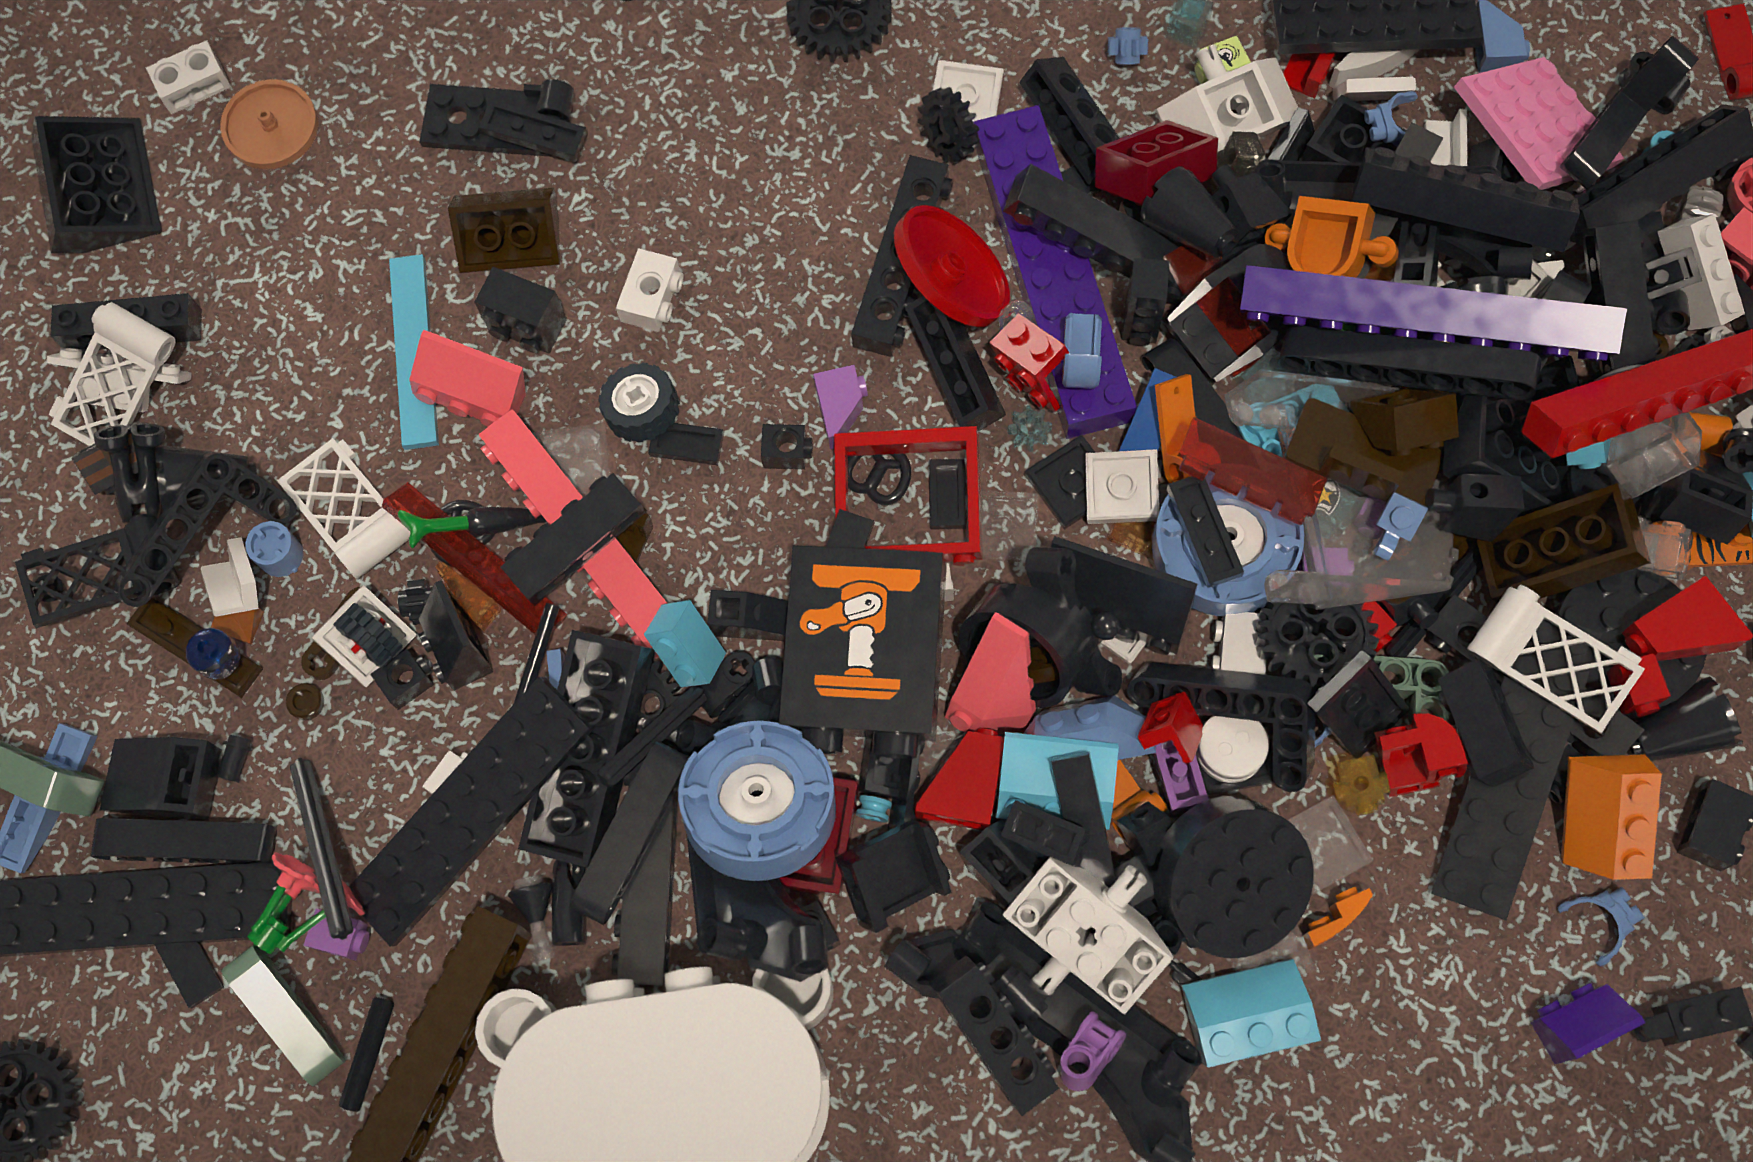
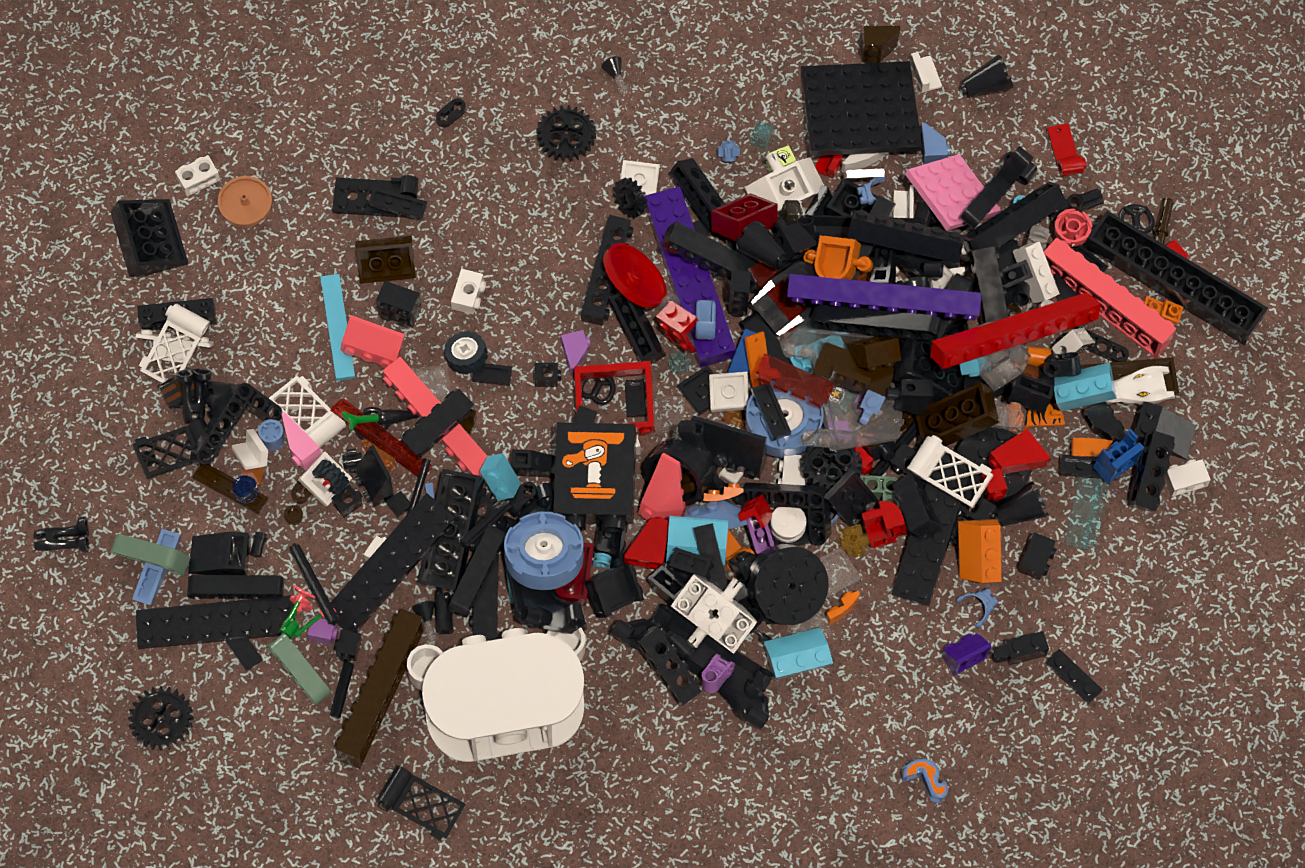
camera: 10 degrees left, 5 degrees down
(320, 569) = (302, 447): none -> bright pink slope
(382, 967) = (348, 646): none -> black brick
(499, 686) = (398, 504): none -> black tile
(1121, 686) = (729, 492): none -> orange slope

